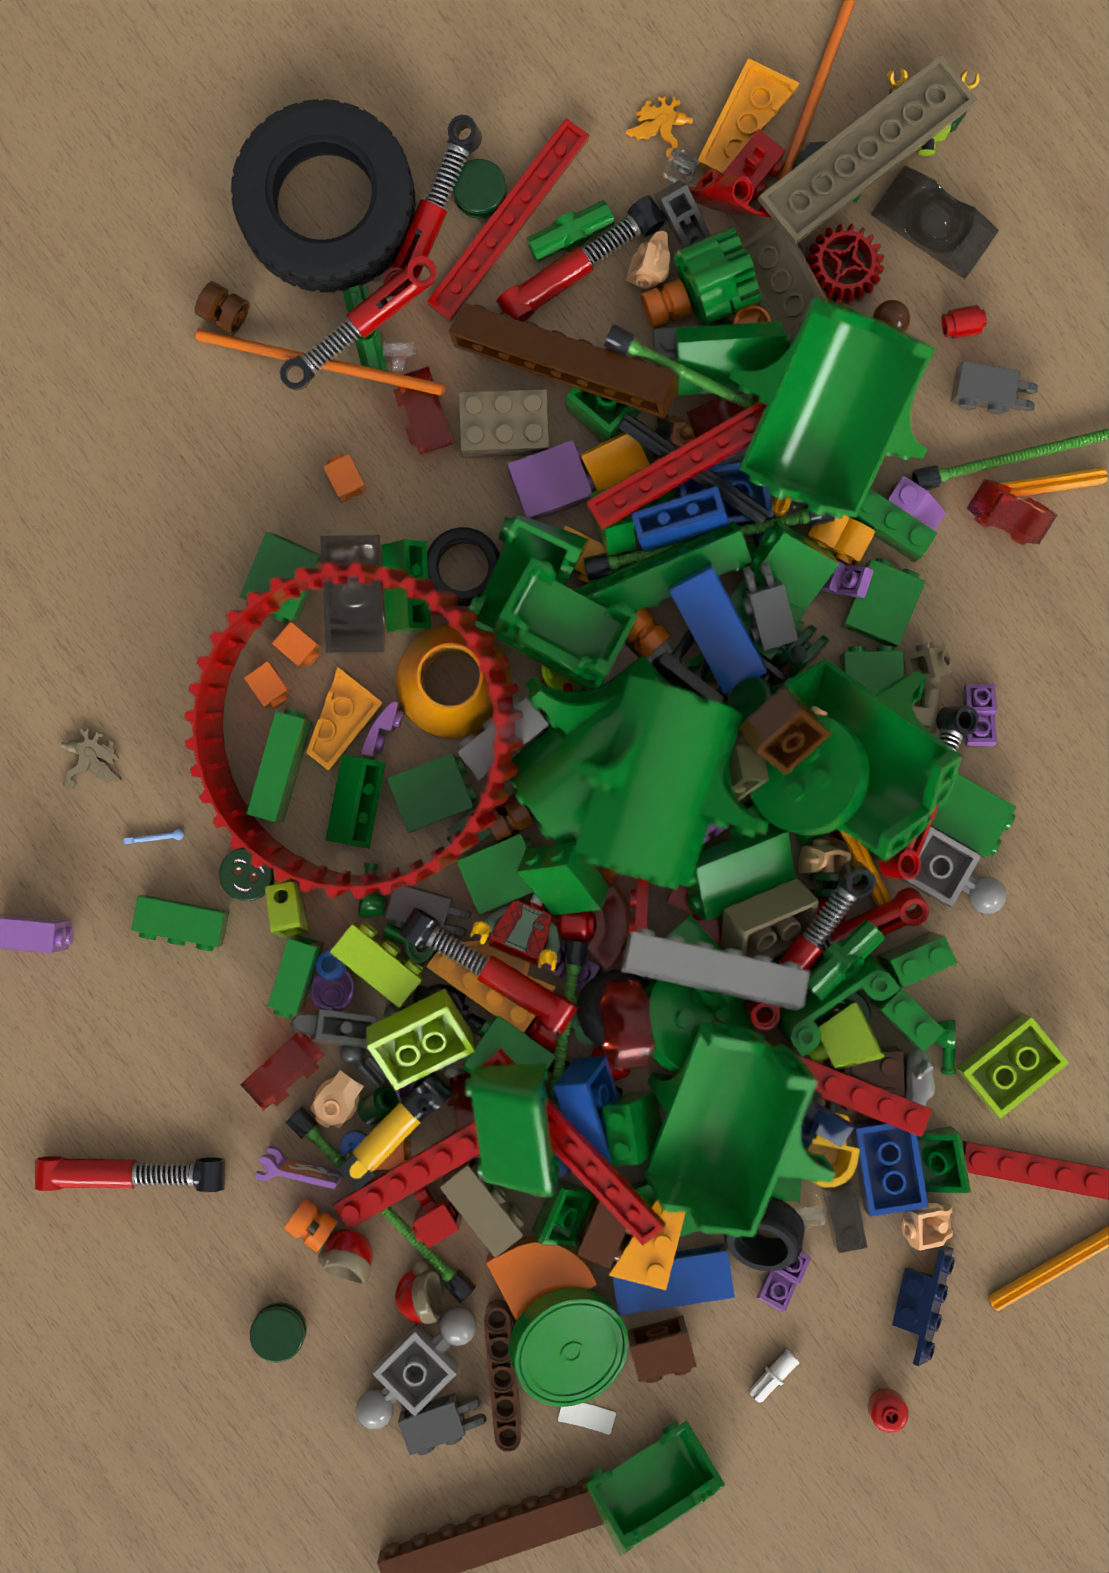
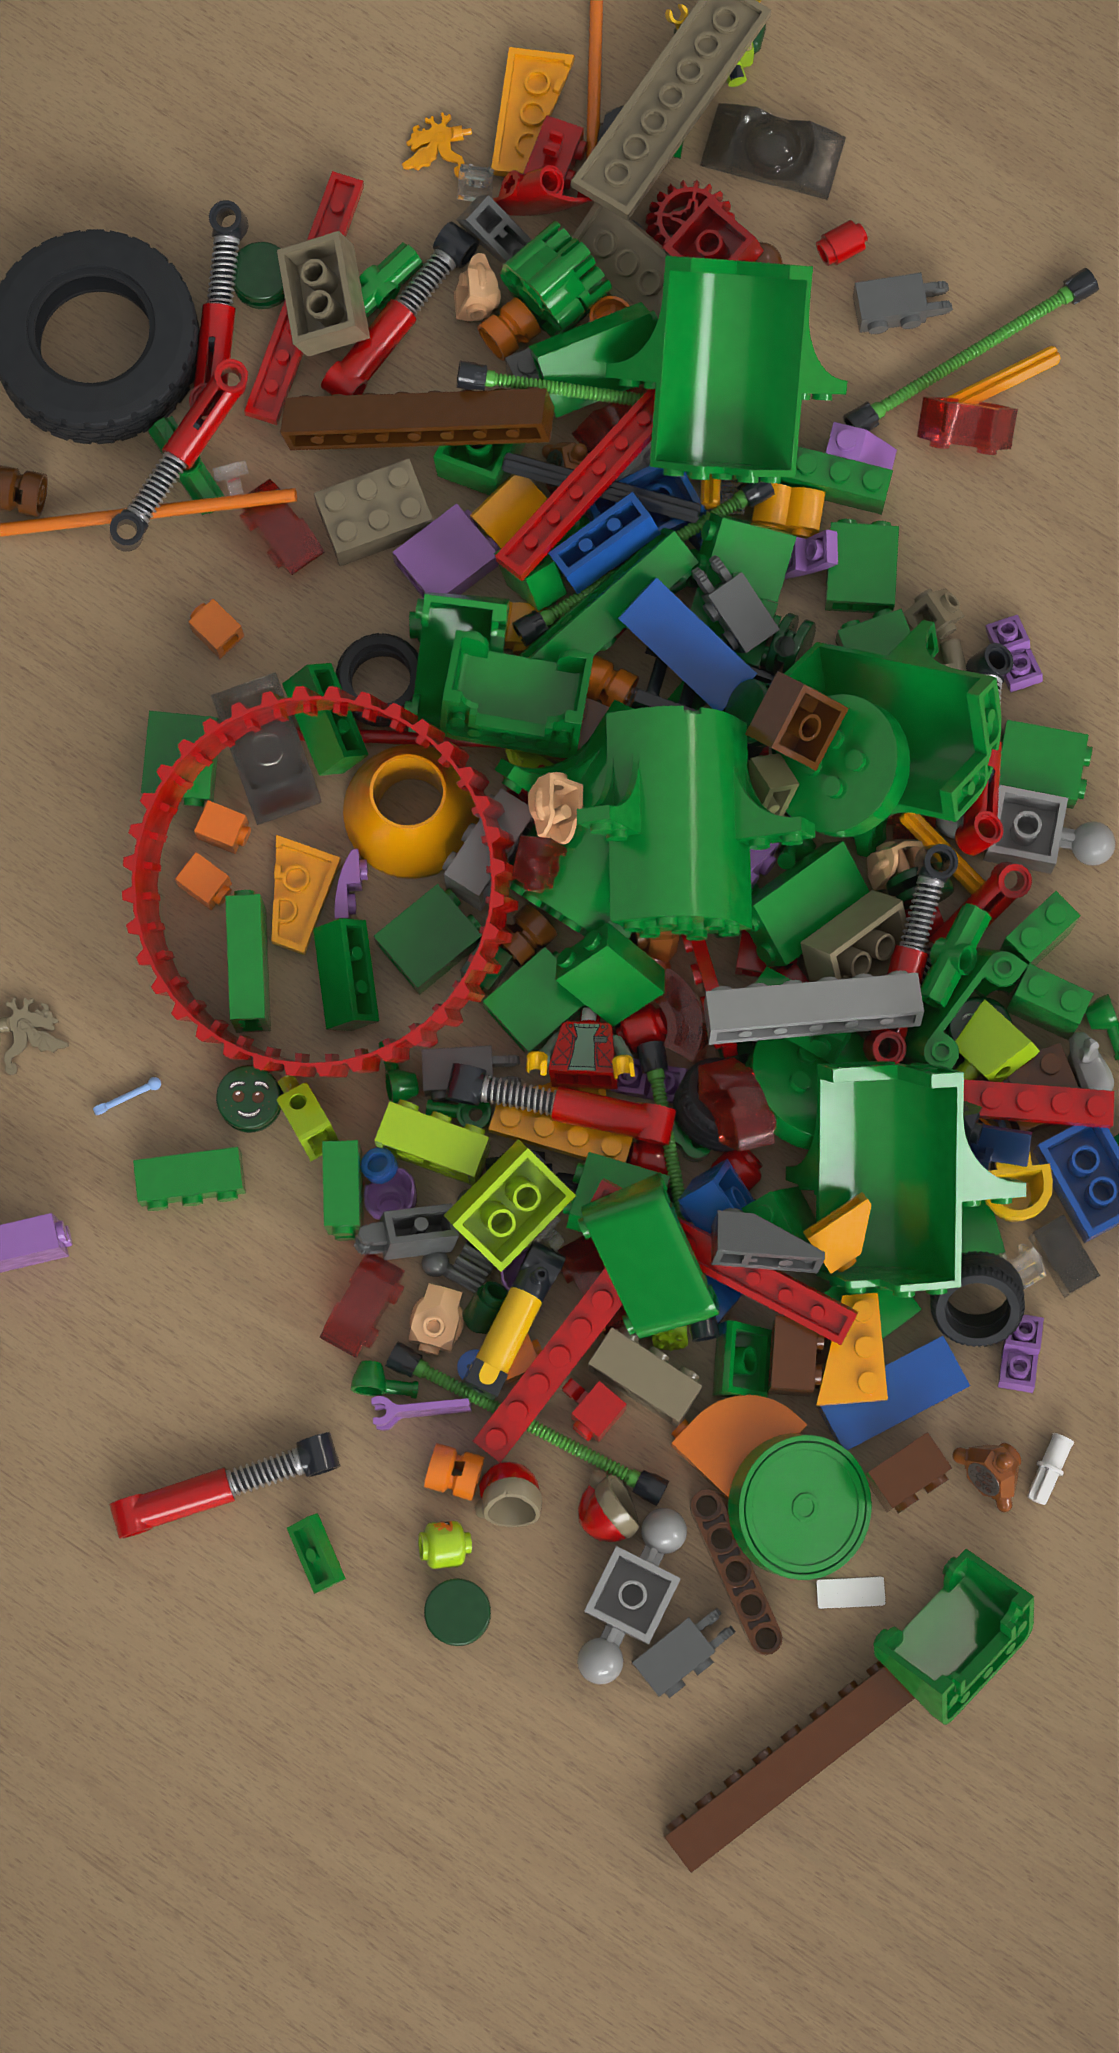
camera: 15 degrees left, 10 degrees down
(183, 1250) = (316, 1553): none -> green plate
(272, 1129) = (371, 1381): none -> green bar
(284, 1277) = (444, 1544): none -> lime head
(521, 224) = (323, 294): none -> dark tan brick
(532, 775) = (537, 862): none -> clear red brick
(563, 735) = (554, 806): none -> light nougat hand
(600, 1146) = (753, 1242): none -> dark grey slope
(673, 1156) = (841, 1233): none -> light orange slope
(728, 1364) = (992, 1471): none -> dark orange rock
(859, 287) = (713, 235): none -> red brick

